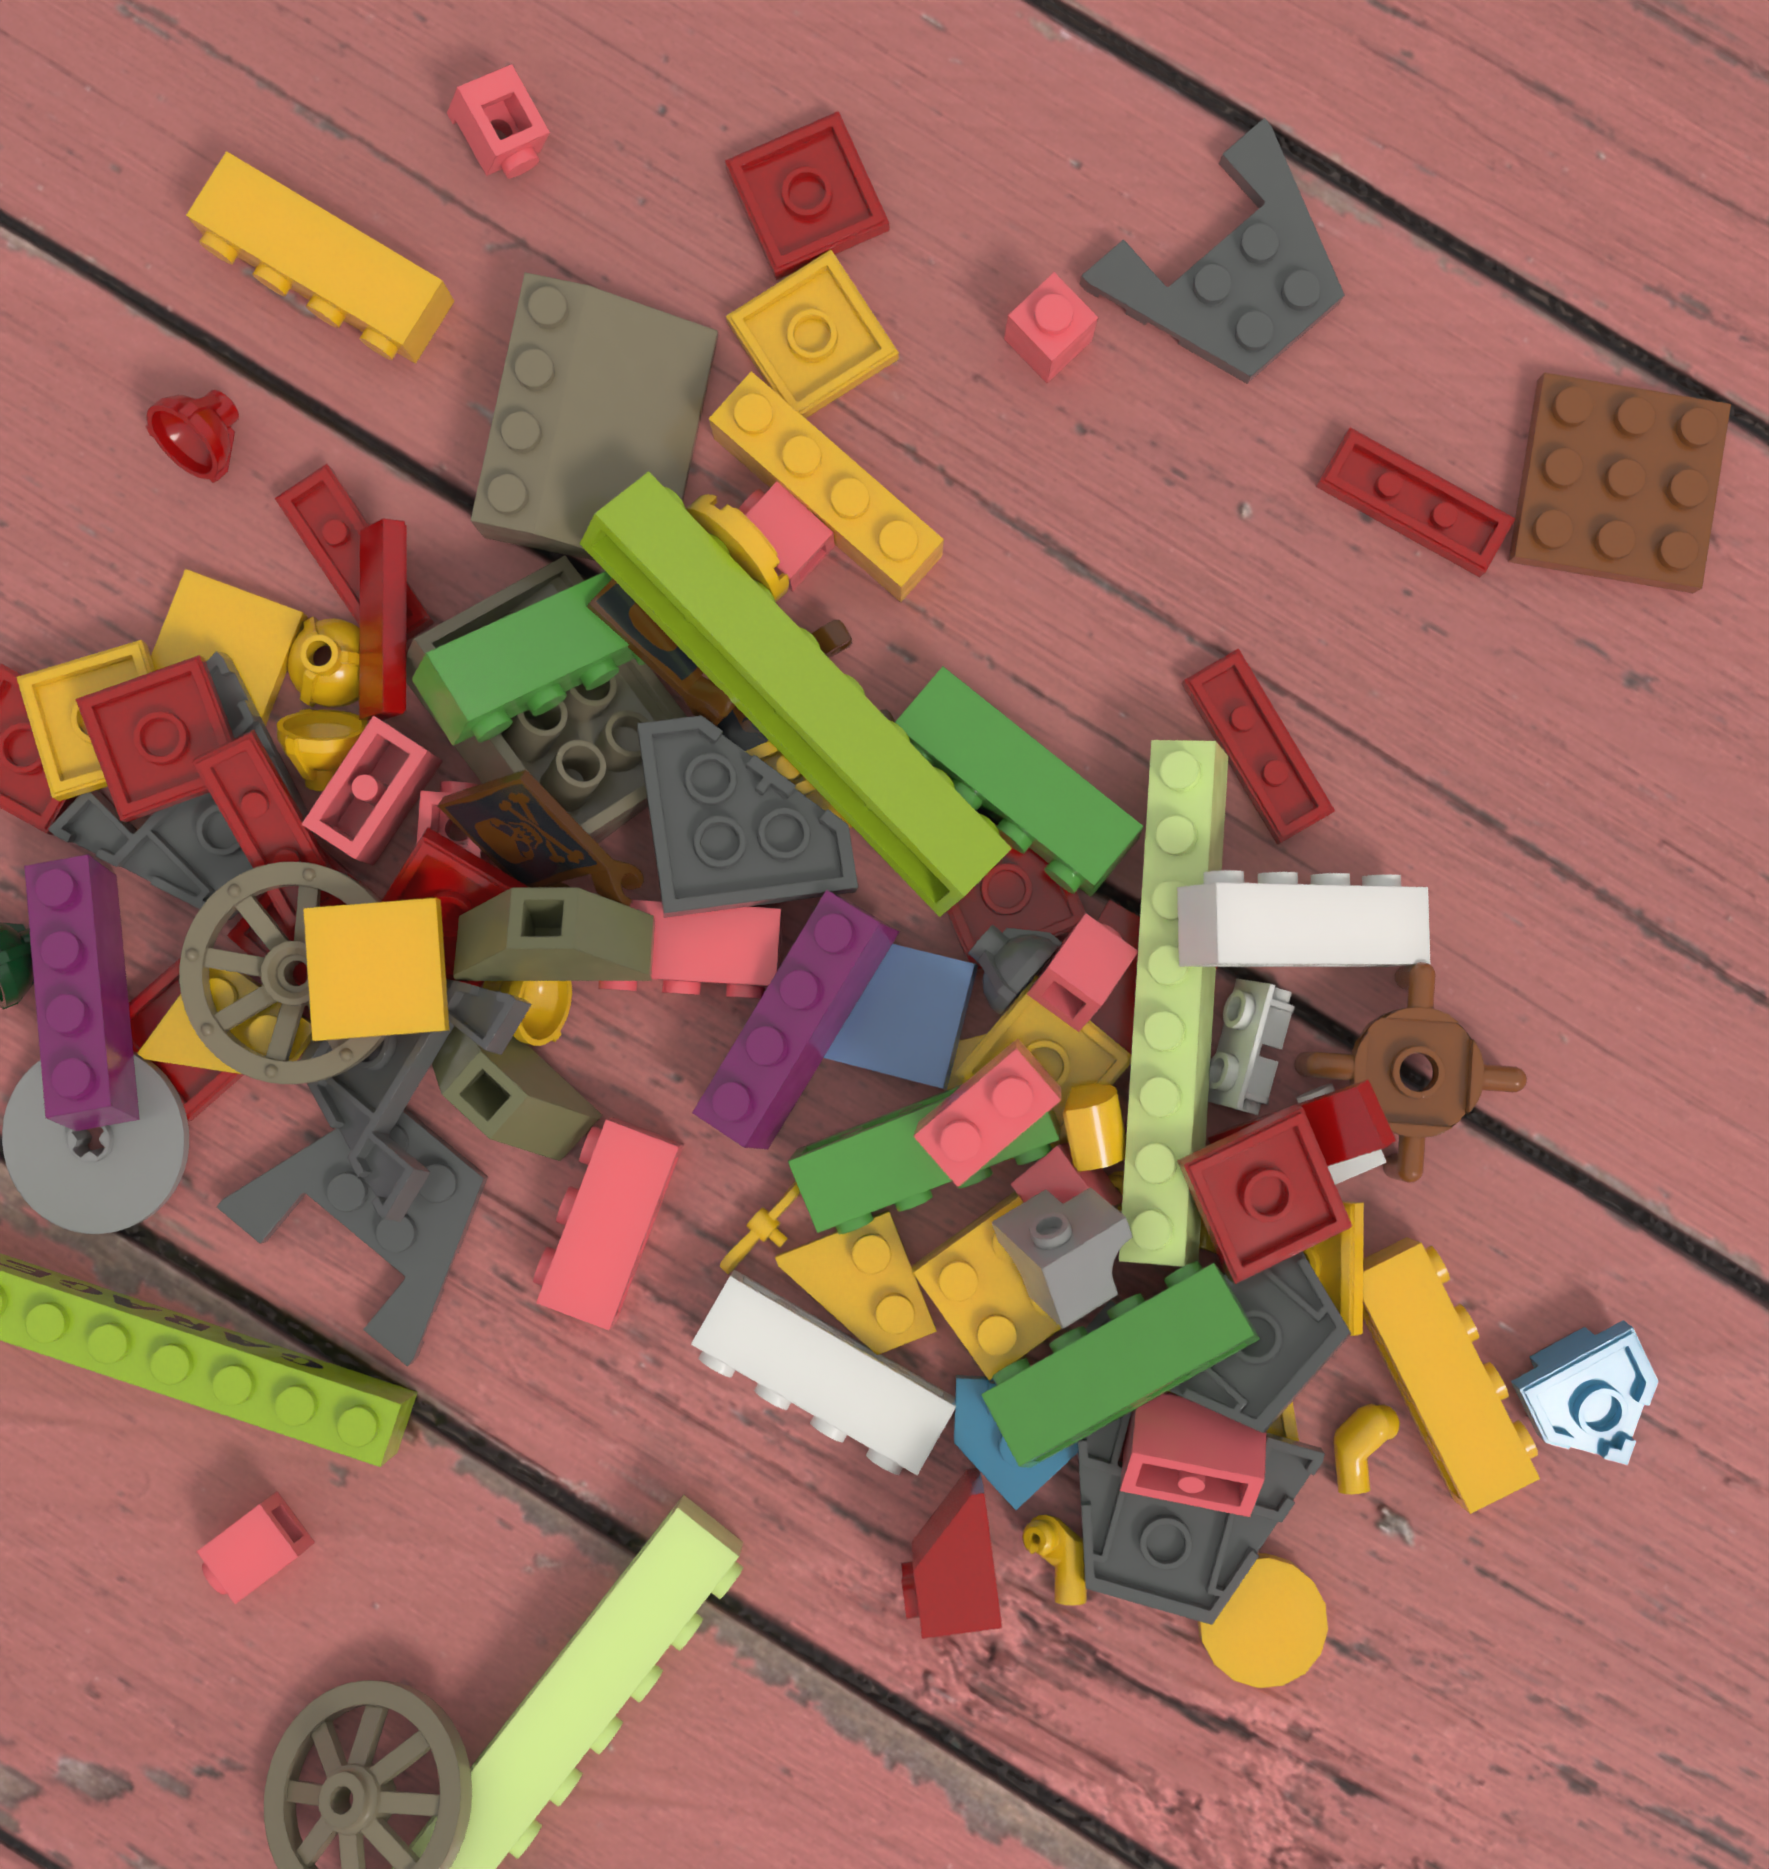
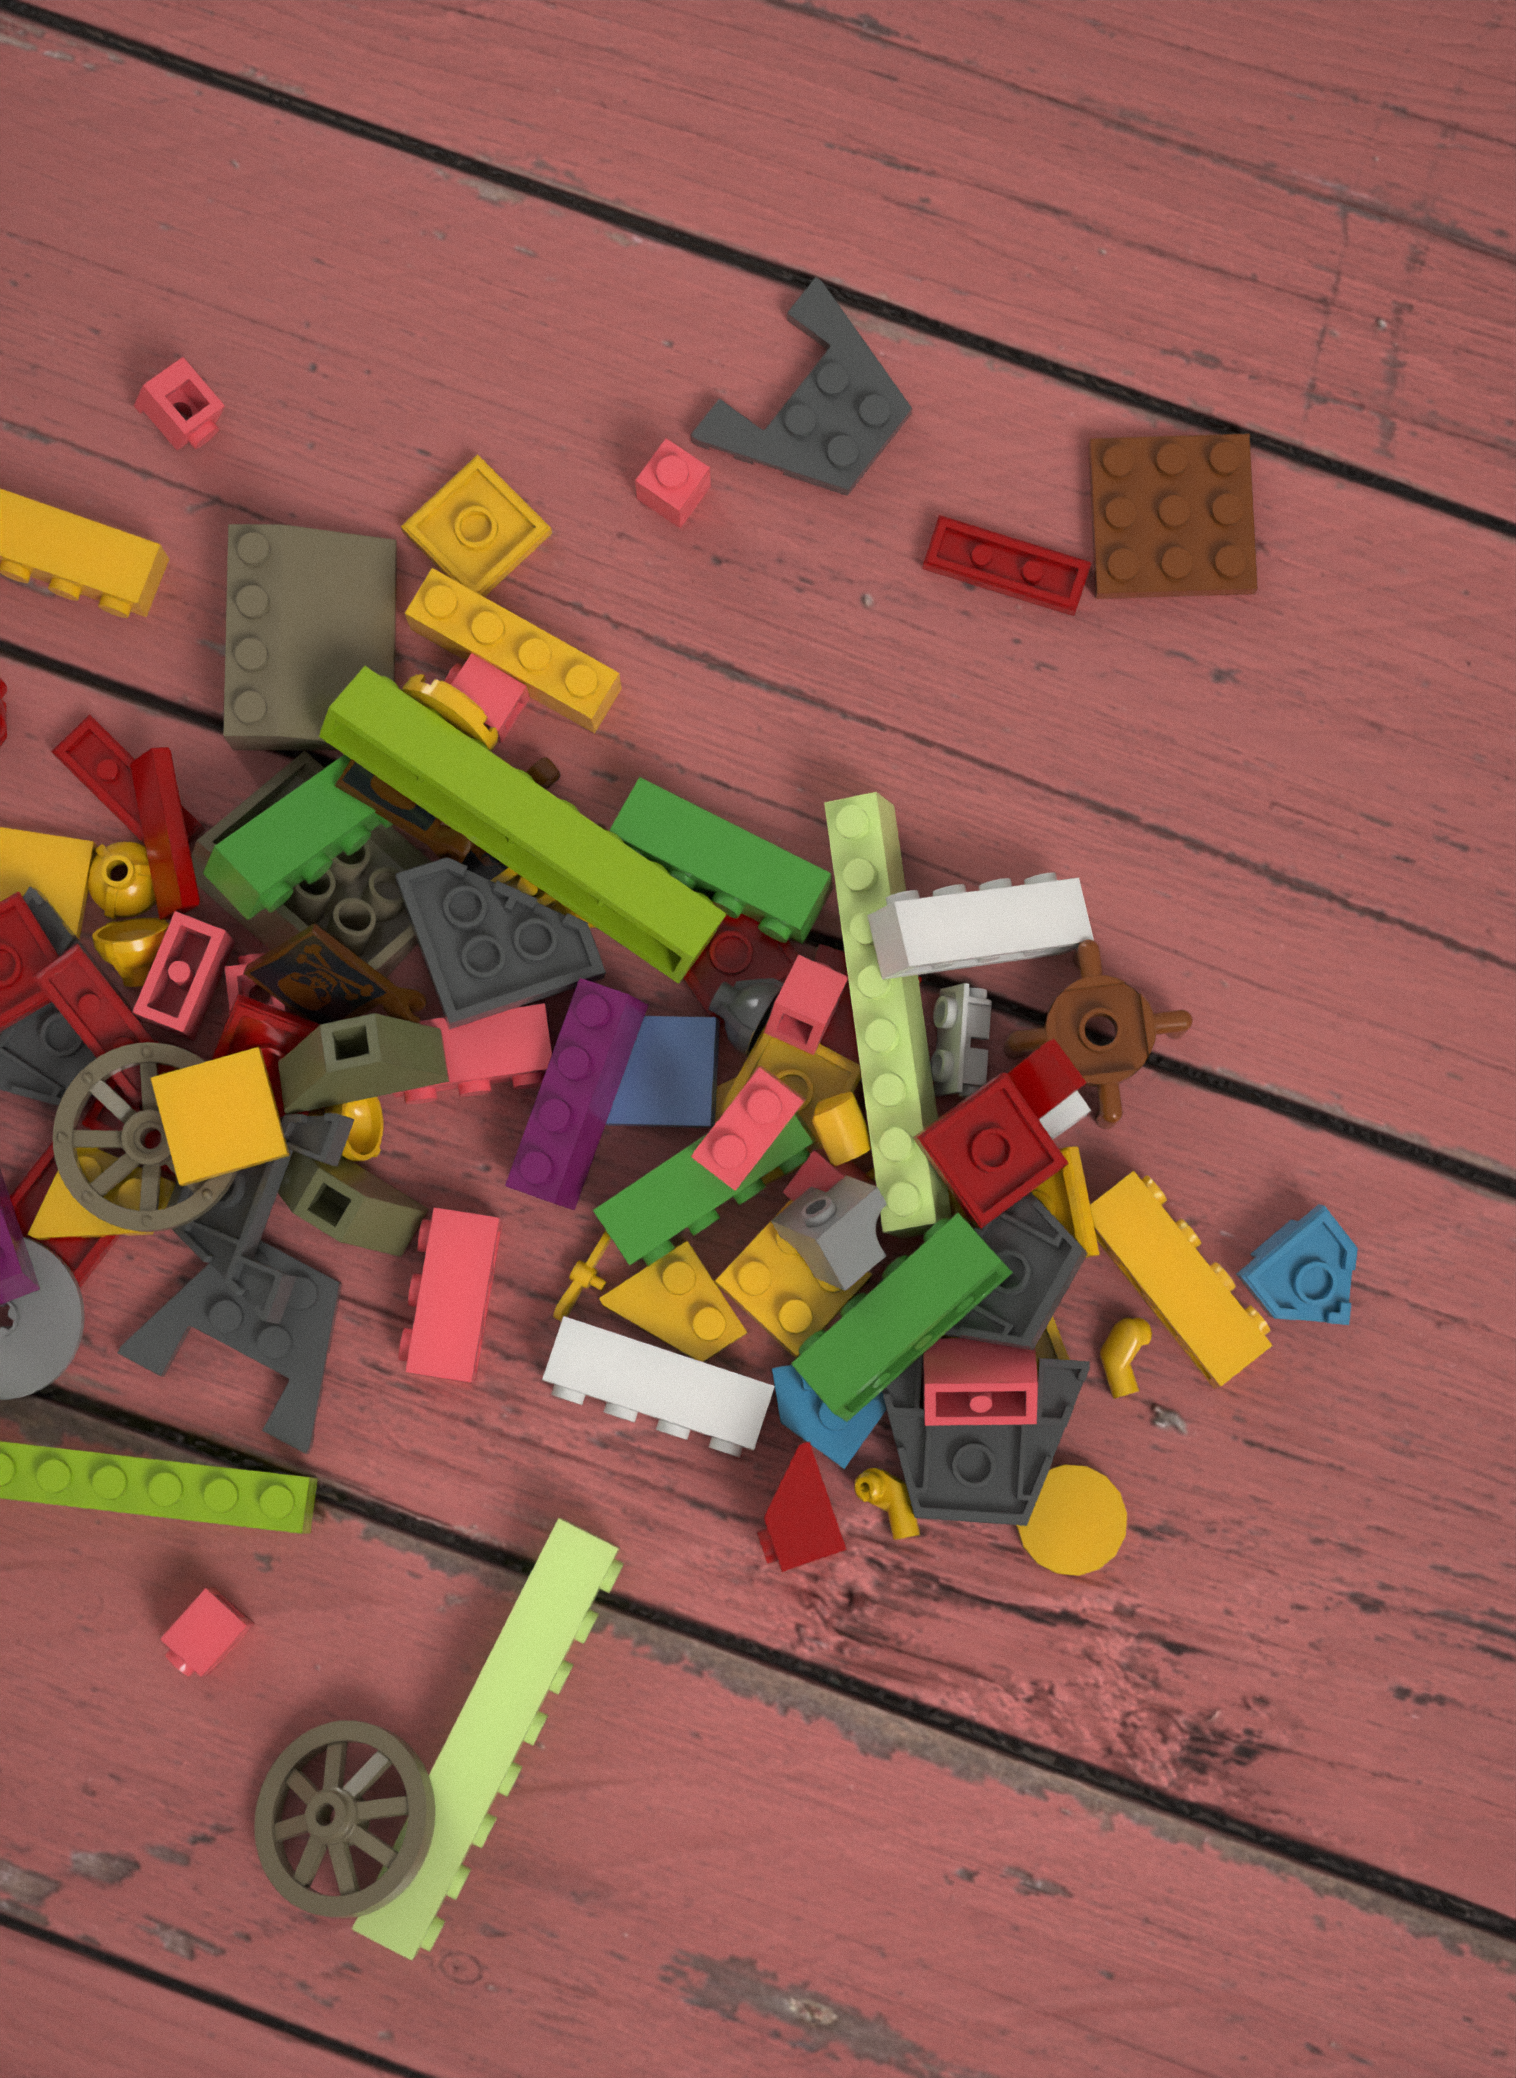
camera: 15 degrees left, 5 degrees down
(807, 194) = (448, 413): red tile -> none
(1258, 746) = (917, 792): red tile -> none

